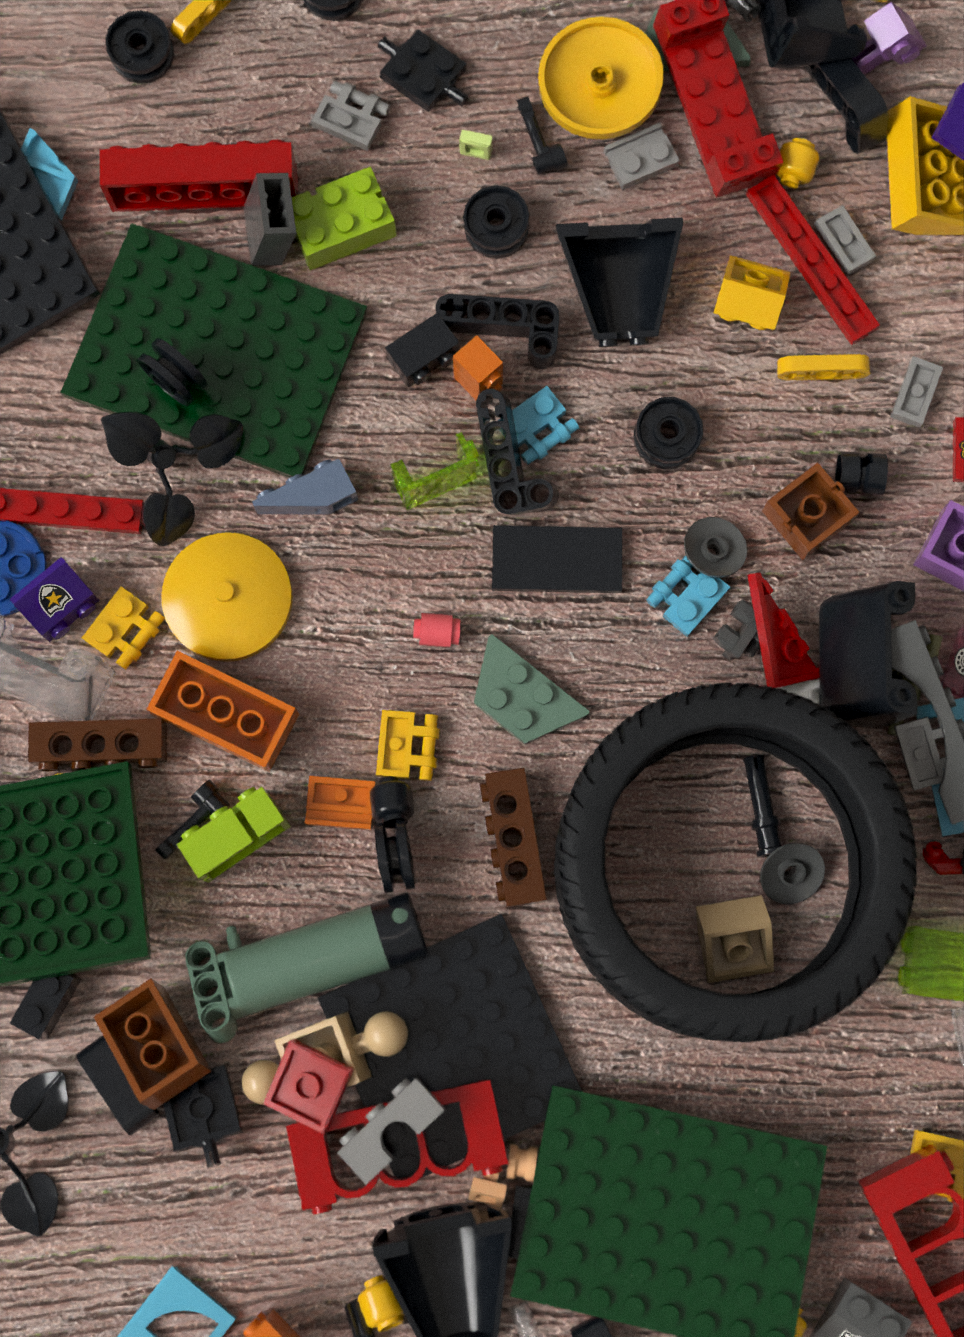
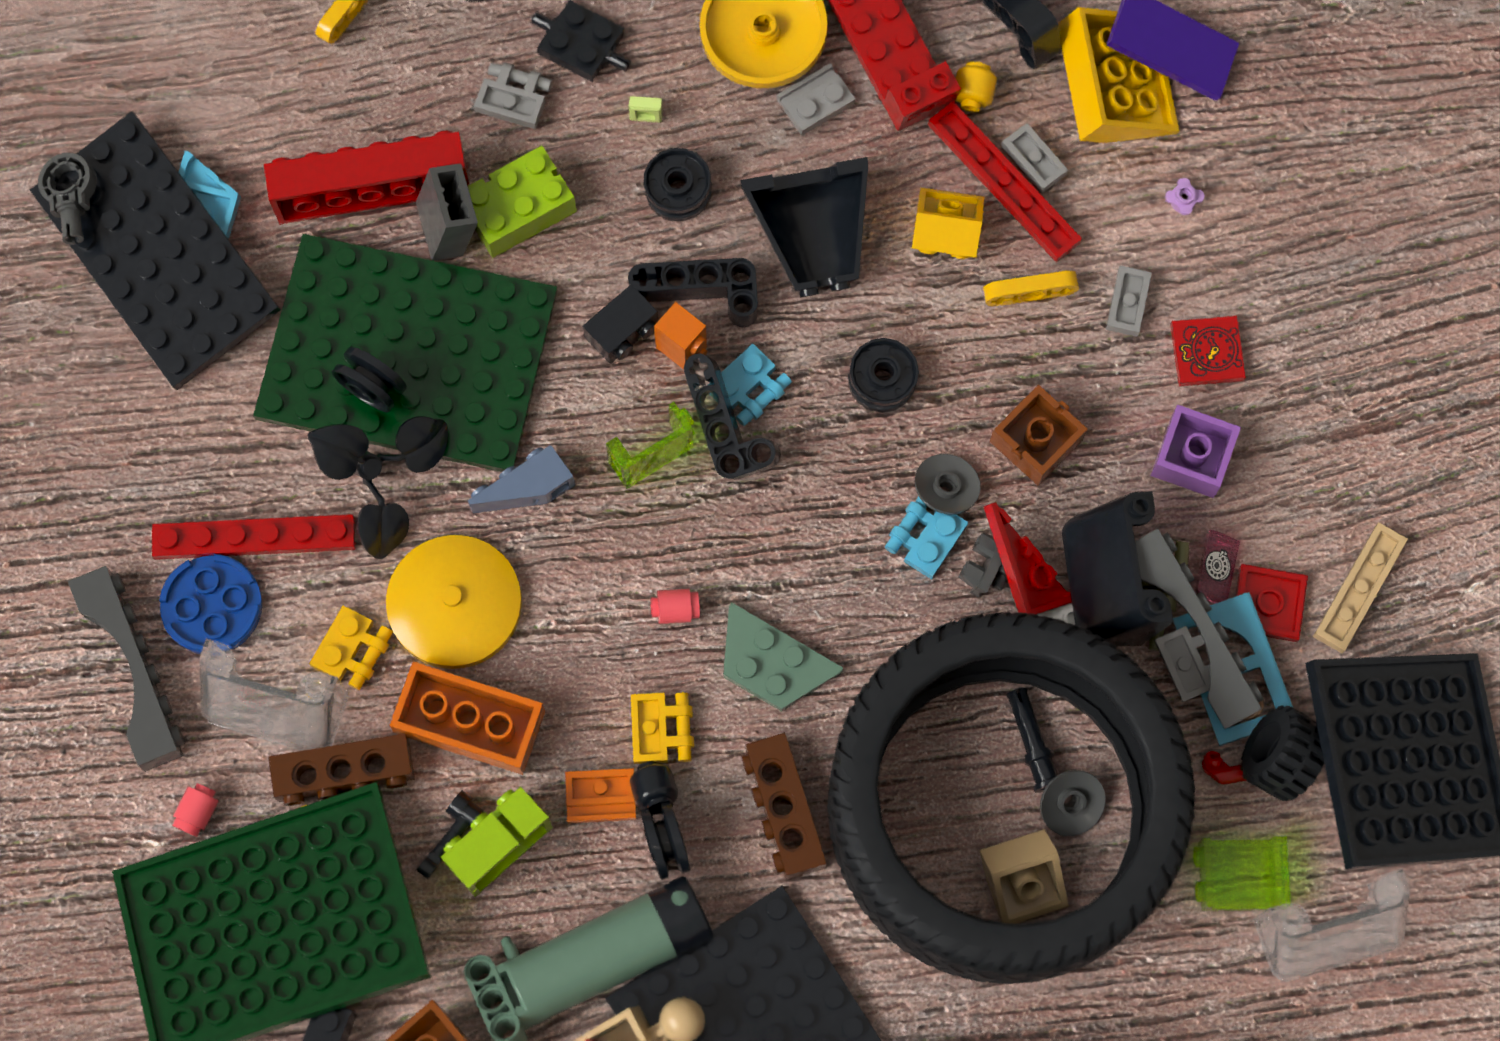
camera: 10 degrees left, 5 degrees down
(55, 600) = (279, 628): dark purple slope -> none
(138, 29) = (284, 35): black wheel -> none
(547, 157) = (719, 112): black brick -> none
(557, 559) = (788, 518): black tile -> none
(862, 473) = (1085, 389): black wheel -> none

